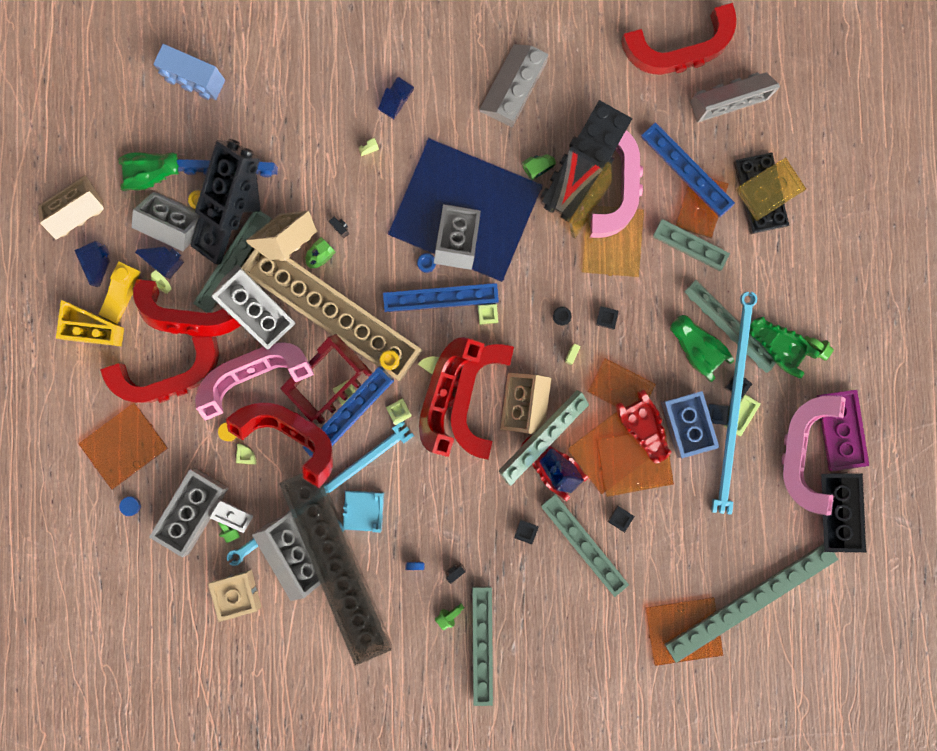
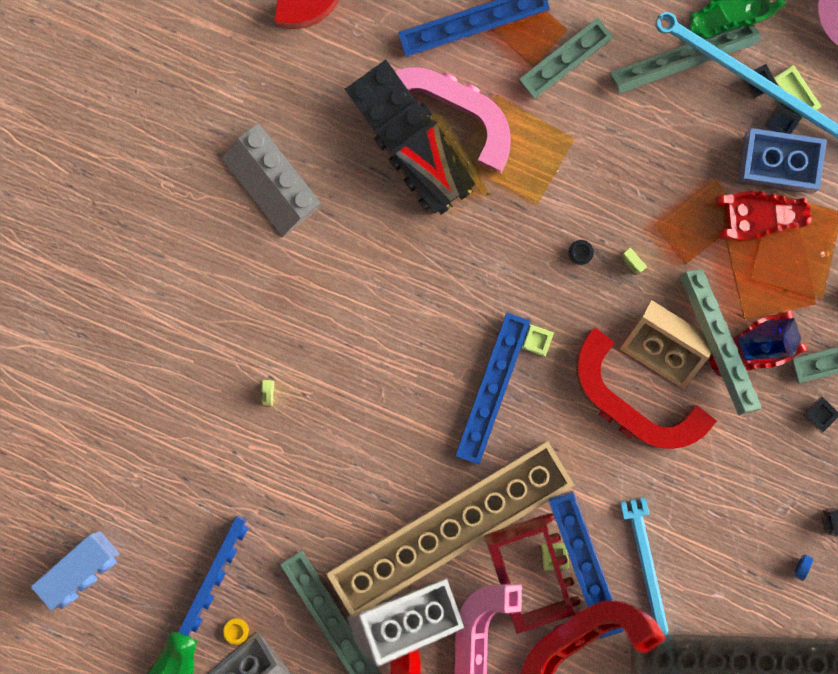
camera: 65 degrees left, 0 degrees up
(225, 194) = (255, 595): black wedge -> none
(283, 235) = (332, 545): tan slope -> none
(319, 253) = (371, 512): bright green rock -> none
(340, 226) = (350, 471): black plate -> none
(363, 511) = (708, 599): medium azure piece -> none
(389, 360) = (545, 484): yellow tile -> none
(395, 98) = (221, 331): clear blue slope -> none
(398, 411) = (607, 502): yellowish green tile -> none
(426, 263) = (441, 386): blue tile -> none
(429, 364) = (568, 436): yellowish green tile -> none
(439, 393) = (610, 444): red arch -> none
(457, 237) = (429, 334): light grey slope -> none
(470, 183) = (397, 309): clear blue piece -> none
(538, 165) = (384, 196): bright green rock -> none
(607, 318) = (608, 199): black plate -> none
(701, 348) = (694, 104): green animal -> none

